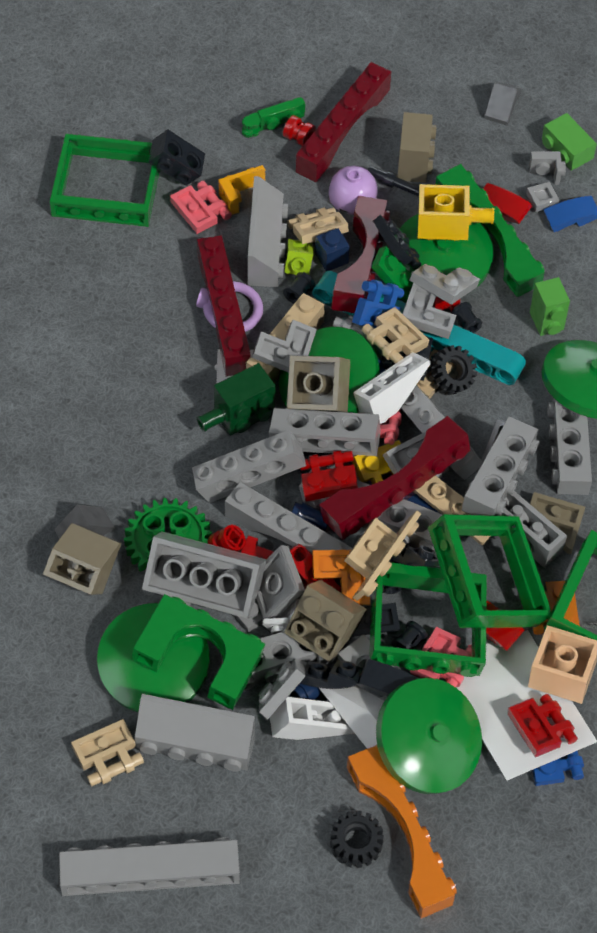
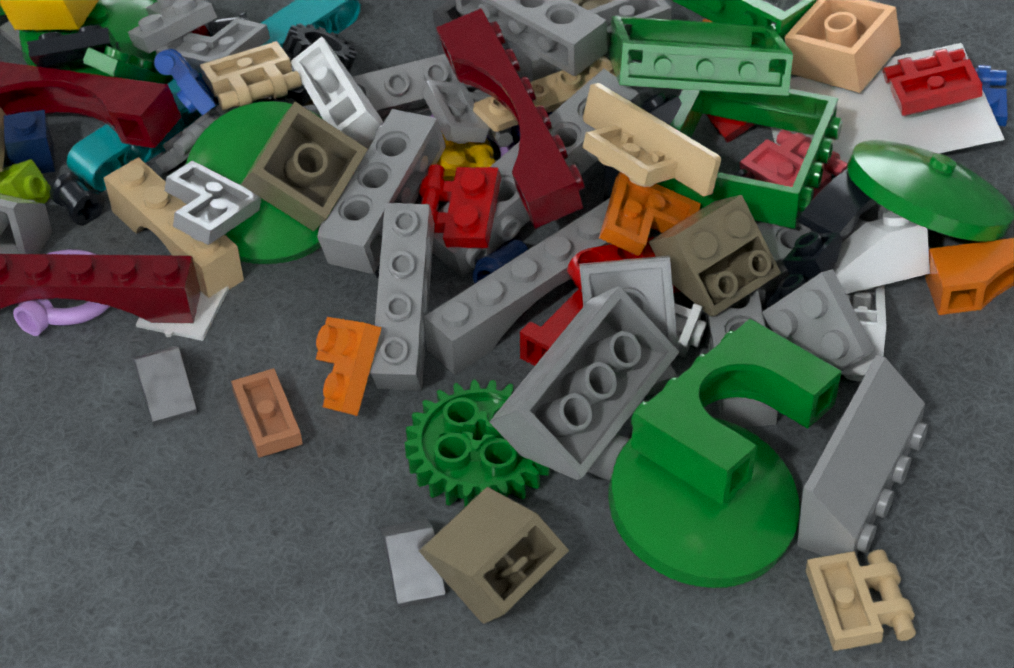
camera: 70 degrees left, 10 degrees down
(165, 429) = (266, 413): none -> nougat plate
(175, 373) = (164, 385): none -> flat silver slope
(204, 453) = (351, 350): none -> orange plate
(229, 537) = (520, 357): red wheel -> none
(241, 401) = (270, 289): dark green brick -> none

